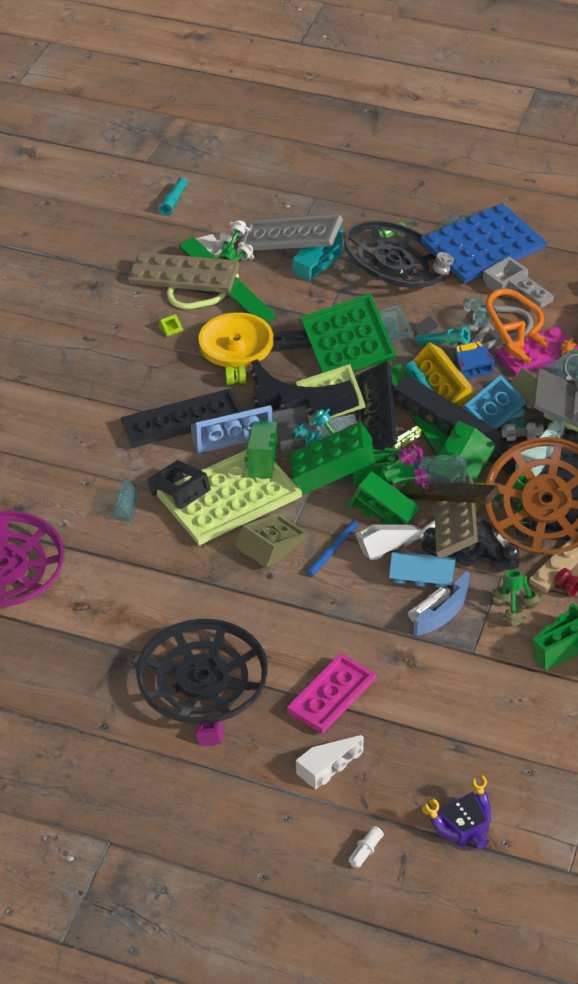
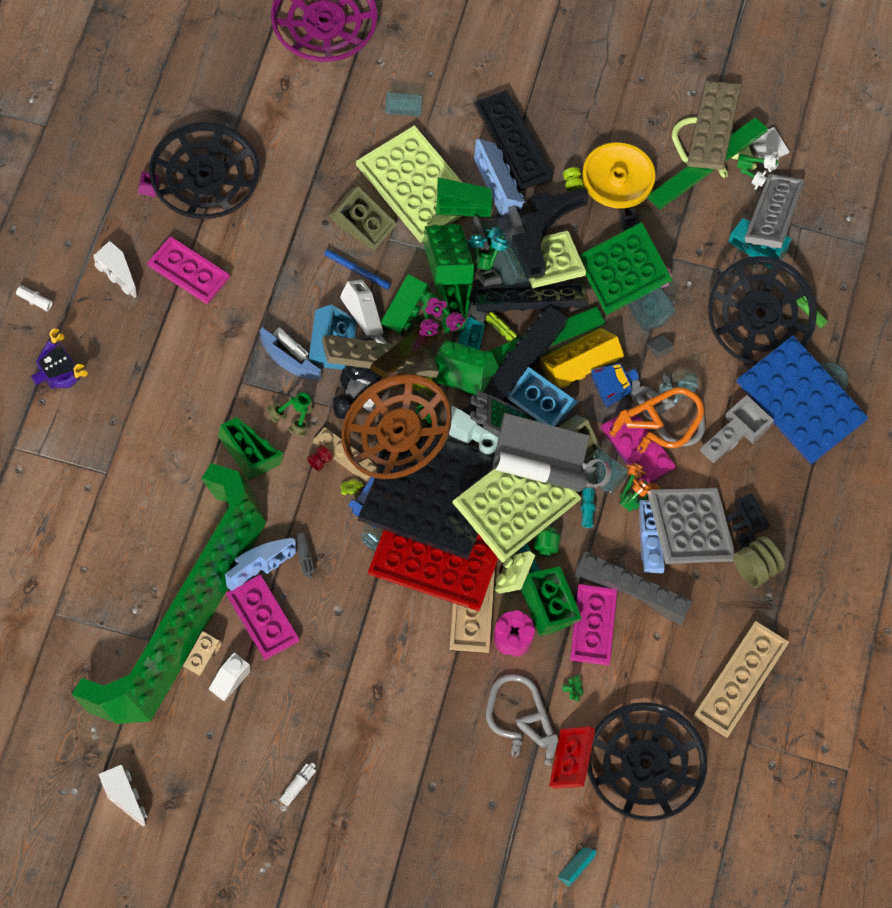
camera: 80 degrees right, 20 degrees up
(170, 325) = (643, 123): lime slope -> none
(171, 199) = (836, 109): teal pin -> none
(187, 491) = (409, 148): black panel -> none
(413, 371) = (578, 334): teal pin -> none
(443, 263) = (756, 353): light grey wheel -> none
(446, 468) = (436, 345): clear light blue panel -> none
(450, 337) = (634, 358): teal pin -> none

